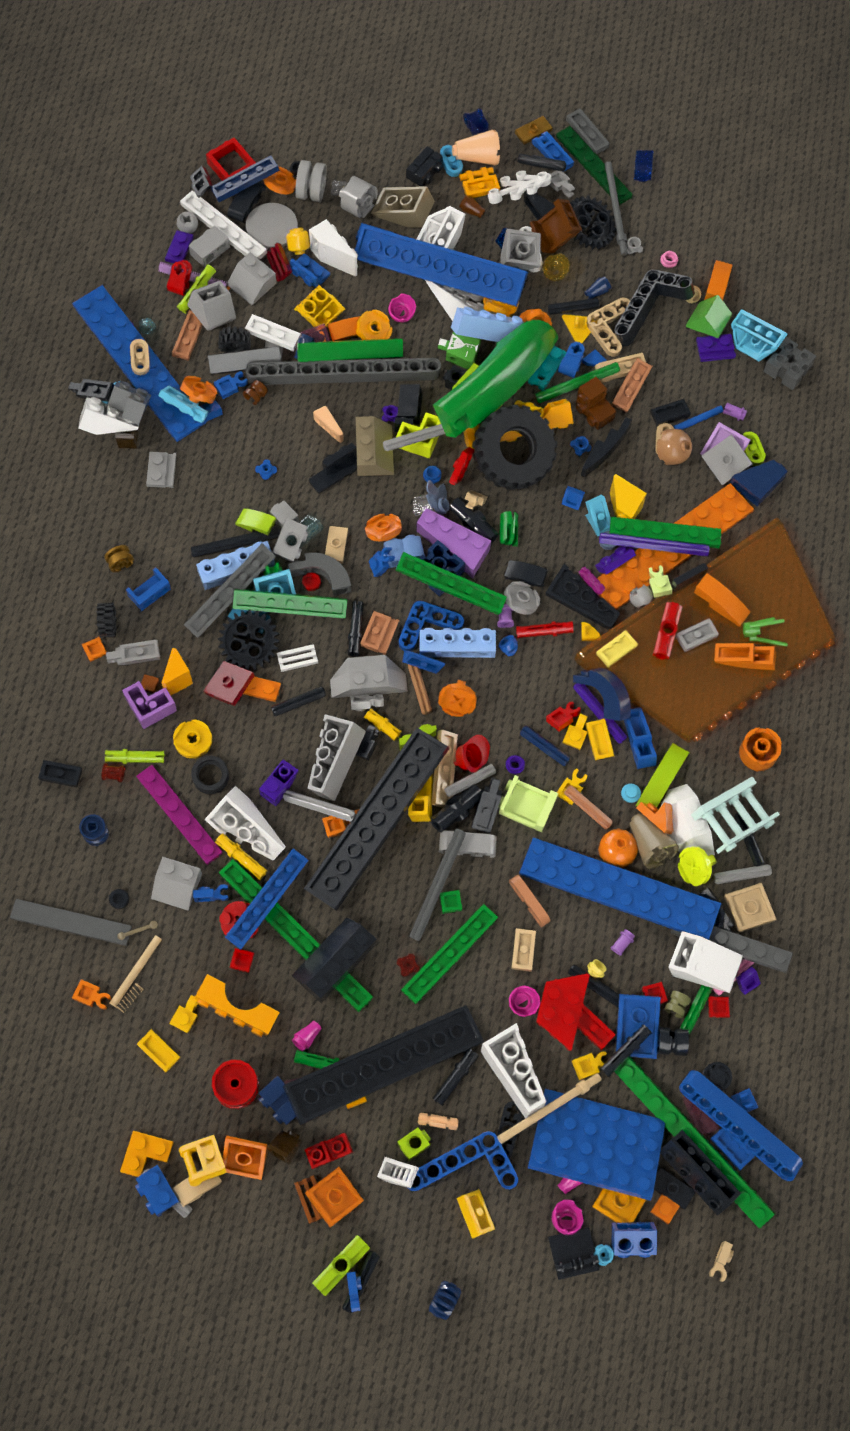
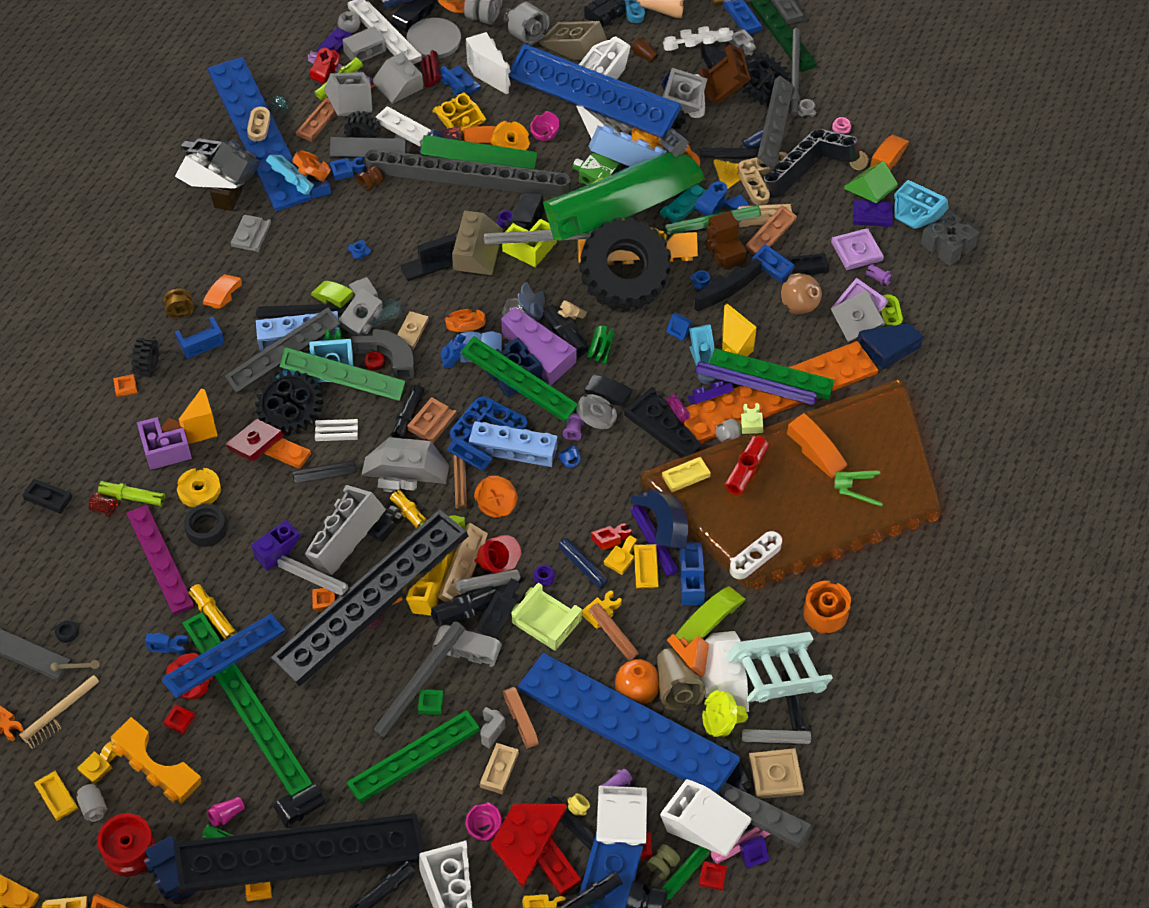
camera: 15 degrees right, 15 degrees down
(94, 830) = (62, 555): dark blue wheel -> none
(134, 653) = (165, 395): light grey hinge -> none
(153, 536) = (221, 291): none -> orange slope
(175, 883) = (129, 624): light grey slope -> none
(192, 1052) = (91, 803): none -> light grey brick
(242, 818) = (224, 573): white wedge -> none
(298, 241) = (455, 52): yellow head -> none
(327, 422) = (435, 215): light nougat slope -> none
(334, 959) = (281, 735): black slope -> none
(364, 1020) = (294, 808): none -> black piece
(405, 971) = (357, 755): clear red plate -> none
(432, 473) = (534, 280): blue plate -> none
(461, 465) = (564, 274): red plate -> none
(479, 186) = (657, 30): light orange plate -> none
(508, 918) = (494, 727): none -> light grey bracket
(529, 312) = (674, 143): none -> dark grey plate
(541, 162) = (727, 21): black axle -> none
(544, 629) = (610, 447): red pin -> none
(554, 263) = (717, 111): clear yellow hair -> none
(588, 632) = (661, 457): yellow tile -> none
(611, 268) = (775, 122): none -> dark grey plate
(631, 793) = (667, 627): medium azure plate -> none
(637, 975) = (621, 815): none -> white slope
(641, 418) = (774, 264): none -> blue slope
(643, 165) = (834, 40): clear blue slope -> none
(689, 577) = (782, 418): black tile -> none
(697, 635) = (780, 476): light grey plate -> none
(699, 418) = (841, 275): blue bar -> none
(700, 710) = (759, 546): none -> white beam
(710, 388) = (857, 249): none -> lavender plate
(745, 655) = (831, 506): orange slope -> none

